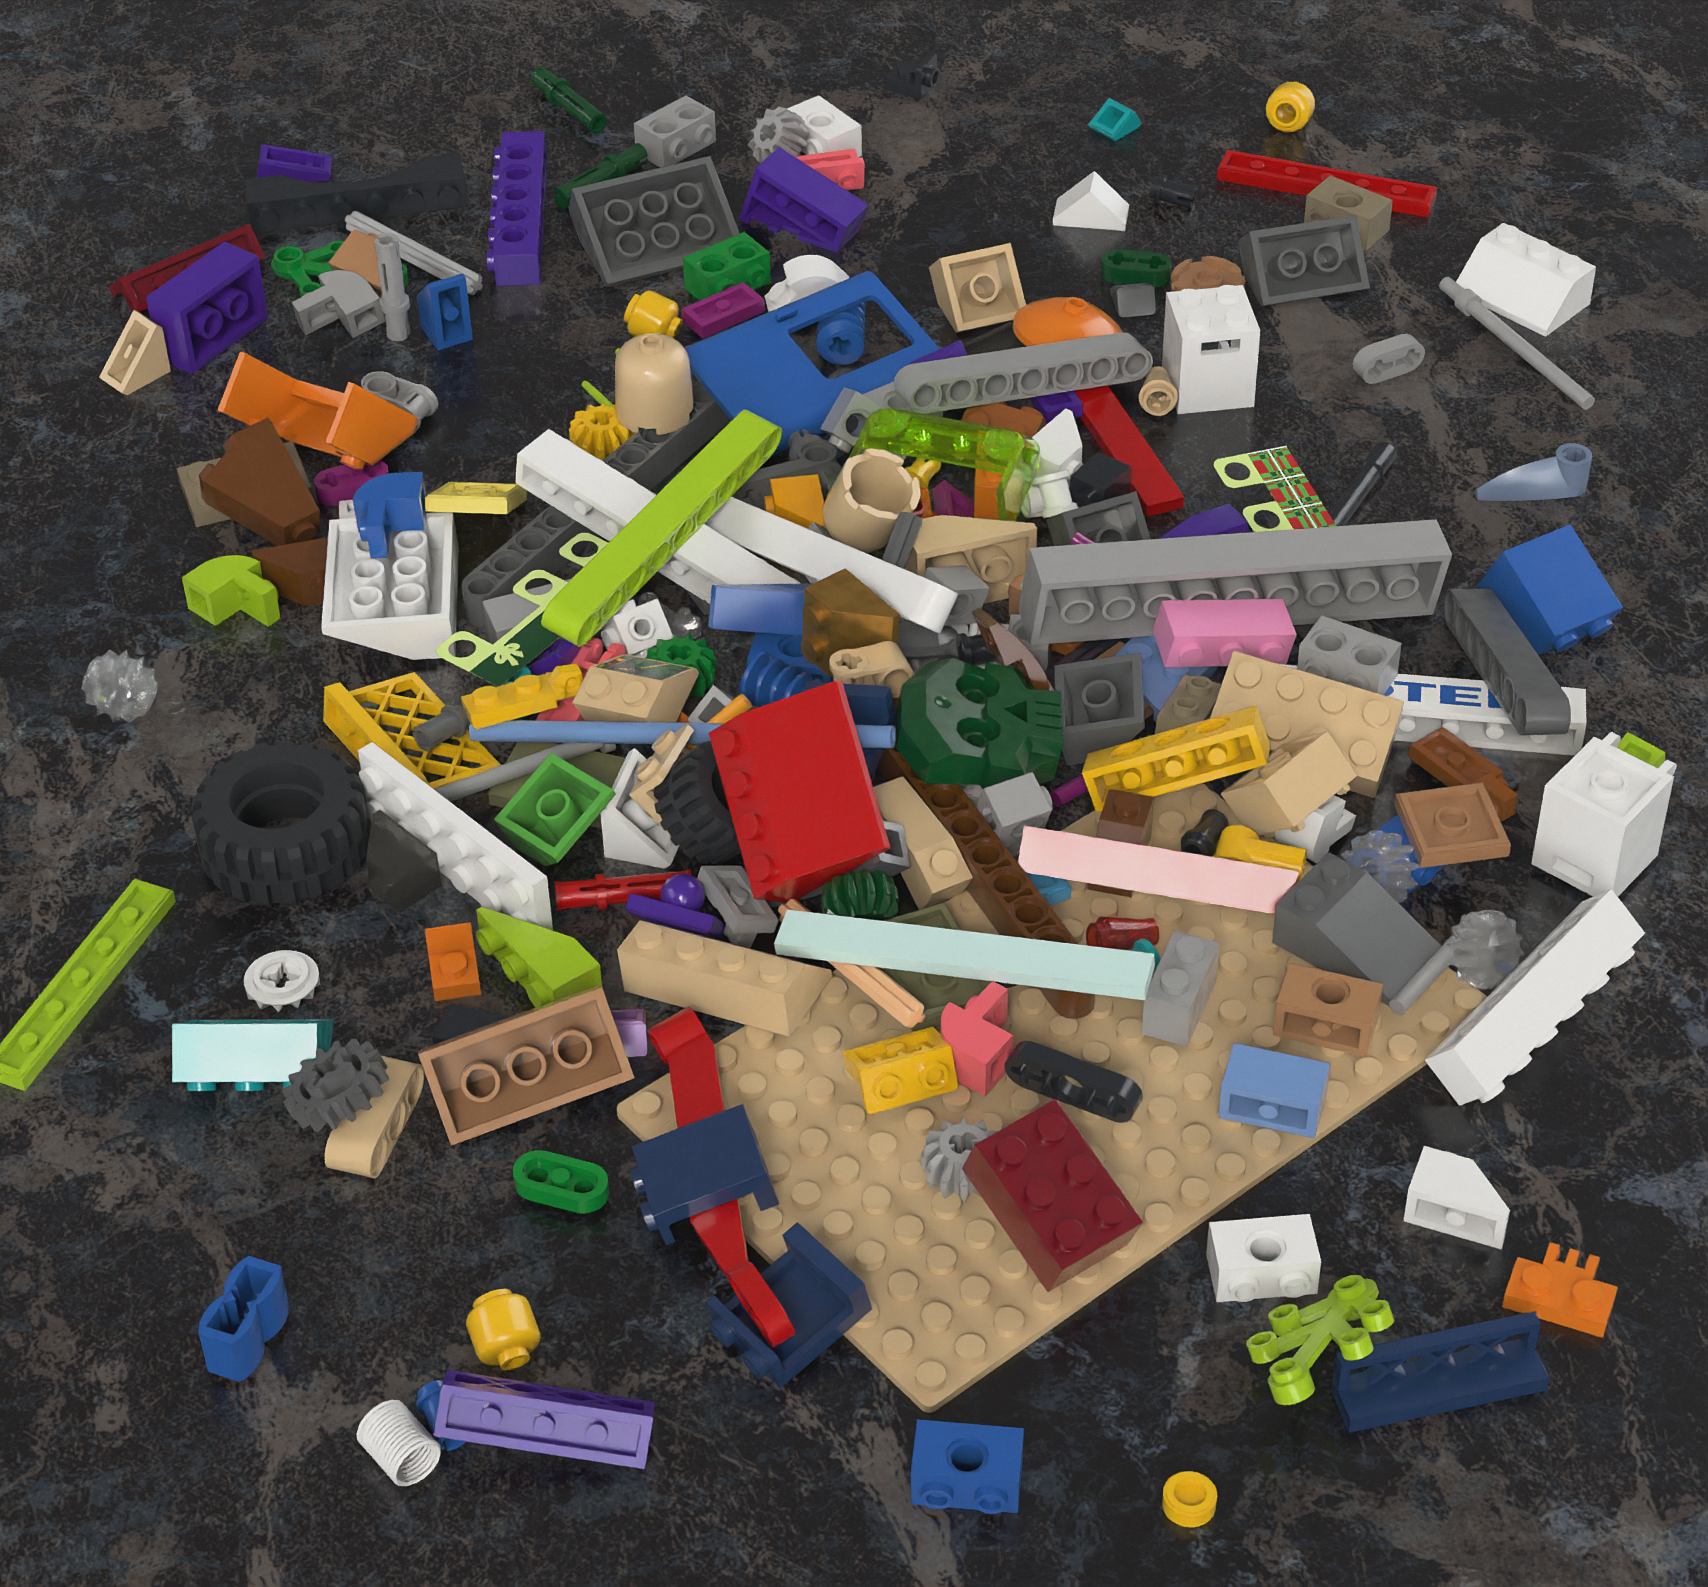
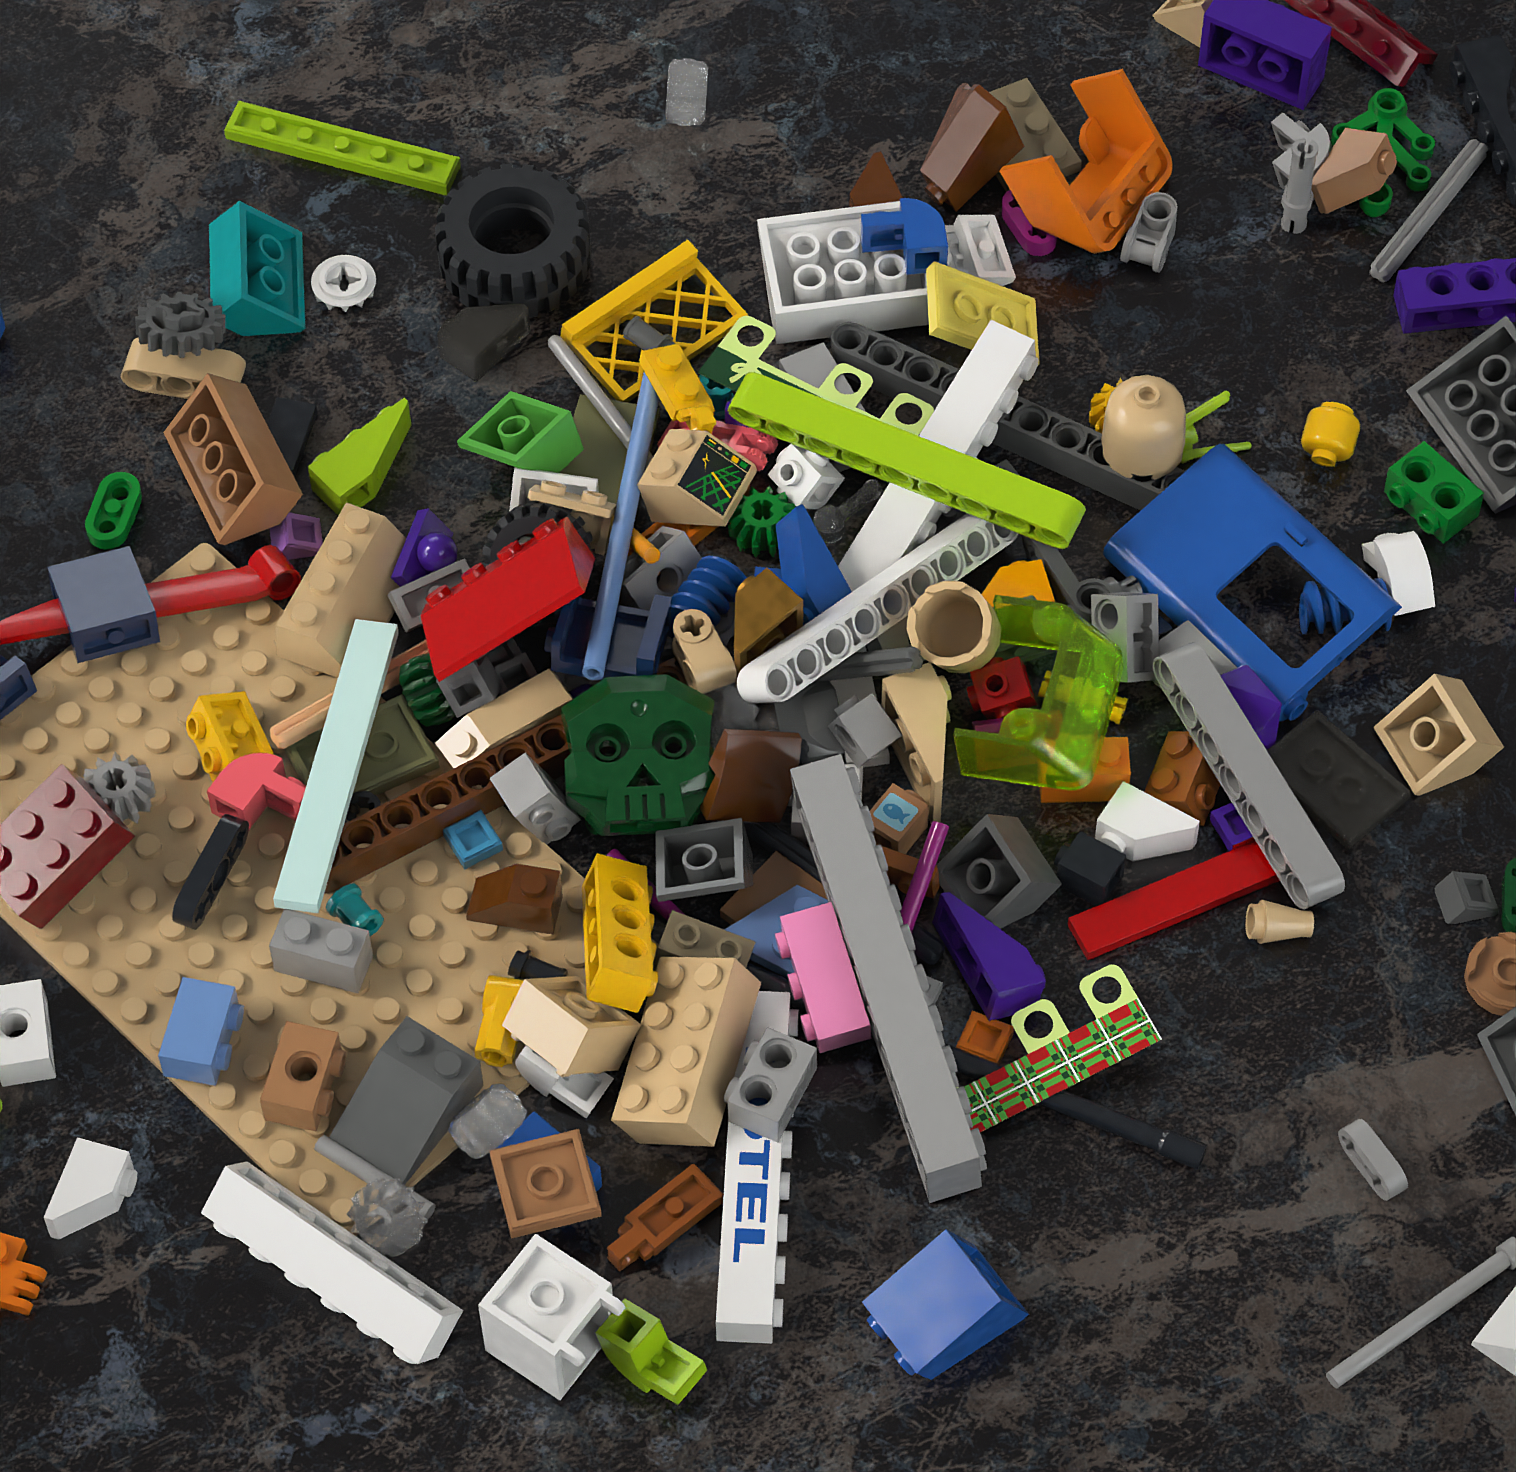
camera: 85 degrees right, 15 degrees up
(230, 585) = (845, 149): lime brick -> none
(445, 312) = (1301, 247): blue slope -> none
(452, 961) = (363, 401): orange slope -> none
(465, 850) = (482, 370): white plate -> none
(610, 890) = (458, 500): red pin -> none
(723, 310) = (1363, 497): magenta plate -> none
(1048, 496) = (1056, 817): white piece -> none
(1061, 320) = (1371, 854): orange dish -> none
(1121, 932) = (394, 901): clear red cone -> none
(1154, 870) = (471, 923): tile -> none
(1214, 377) = (1320, 956): white container -> none
(1507, 662) = (788, 1237): dark grey beam -> none
(1544, 479) = (1170, 1319): sand blue piece -> none

